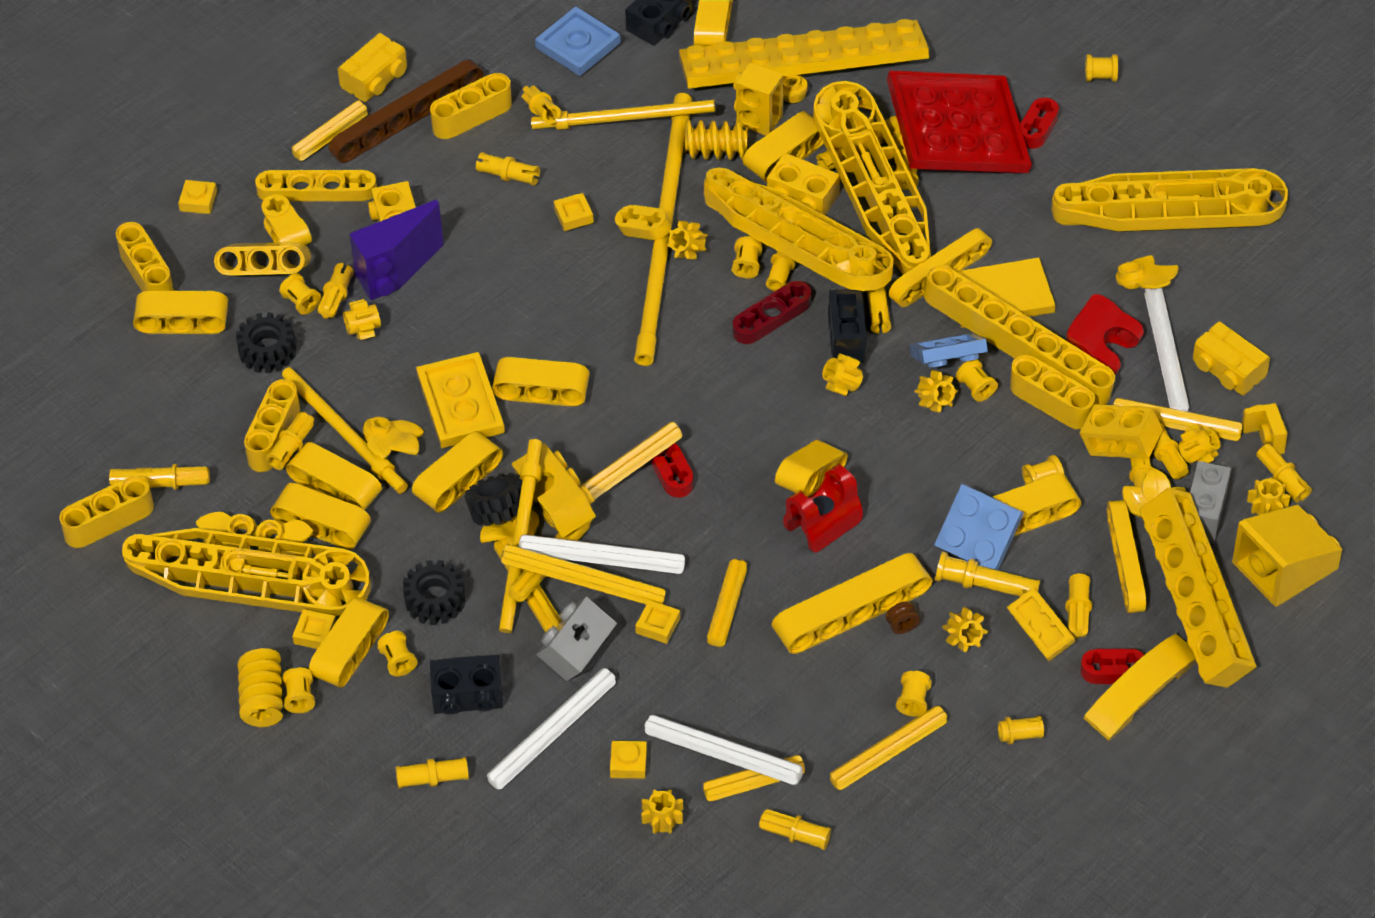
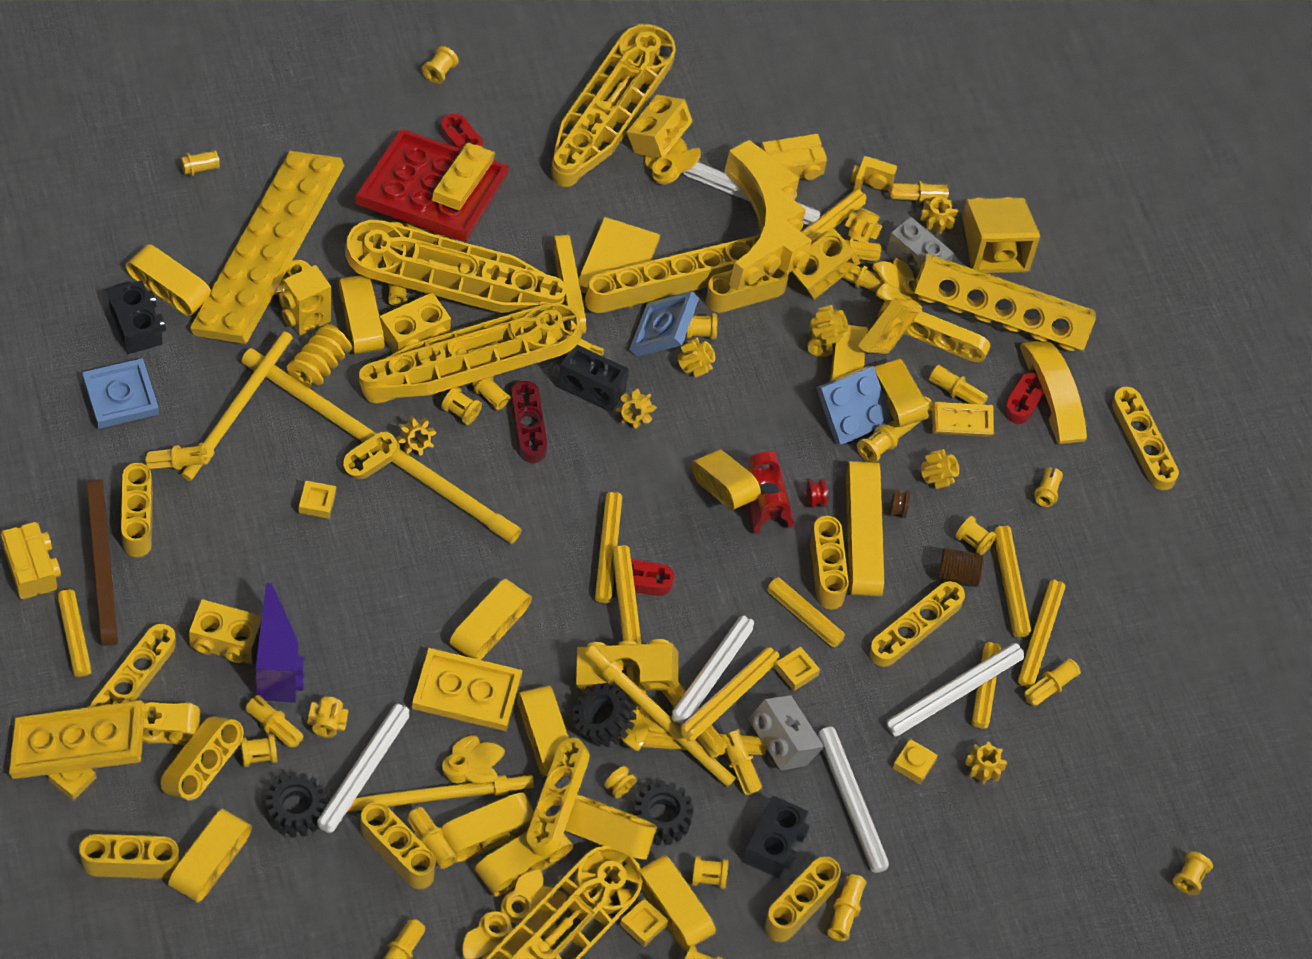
camera: 70 degrees left, 5 degrees up
(223, 175) = (77, 739): none -> yellow tile
(330, 367) = (363, 768): none -> white axle
(381, 498) = (553, 796): none -> yellow beam
(385, 554) = (611, 827): none -> yellow beam
(402, 722) = (797, 912): none -> yellow beam
(443, 547) = (620, 782): none -> yellow bush
(508, 168) = (230, 521): yellow pin -> none
(524, 621) = (742, 763): none -> yellow axle
(698, 422) = (609, 540): none -> yellow axle
(775, 594) = (827, 574): none -> yellow beam
(783, 688) = (914, 621): none -> yellow beam
(848, 797) = (1041, 633): none -> yellow axle
(861, 549) = (817, 493): none -> red bush
(866, 695) = (961, 567): none -> reddish brown piece
(980, 133) = (463, 176): none -> yellow plate
(1020, 555) = (901, 393): none -> yellow beam
(1042, 459) = (829, 324): none -> yellow gear
(1081, 505) = (890, 326): none -> yellow tile
(1101, 324) = (709, 222): red piece -> none
(1130, 367) = (780, 217): none -> yellow arch
(1146, 783) = (1140, 439): none -> yellow beam
(1172, 243) = (659, 126): none -> yellow brick

